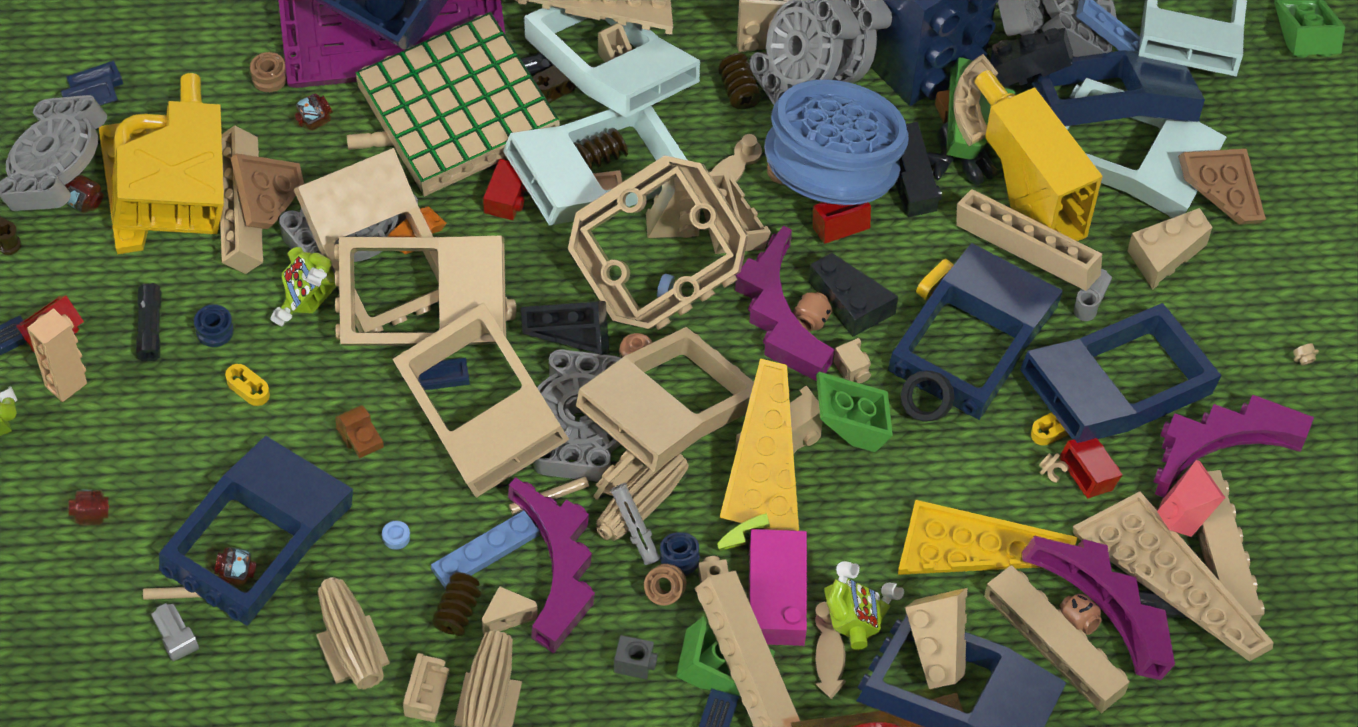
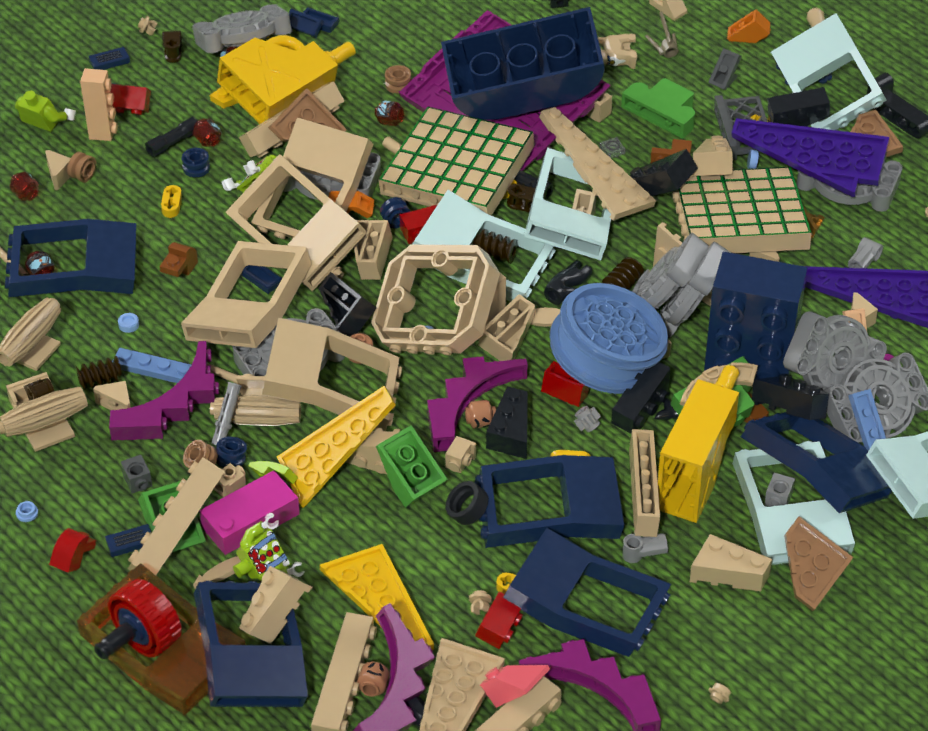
camera: 55 degrees right, 10 degrees down
(89, 458) = (58, 168): none -> tan slope
(115, 434) = (81, 167): none -> medium nougat wheel
(179, 286) = (207, 132): none -> clear red head
(447, 675) = (38, 388): none -> dark brown piece
(470, 200) = (392, 209): none -> dark blue wheel
(522, 264) = (373, 248): none -> tan wedge
(695, 122) = (563, 282): none -> black piece
(897, 231) = (587, 418): none -> light grey gear
(1112, 147) = (779, 490): none -> light grey brick

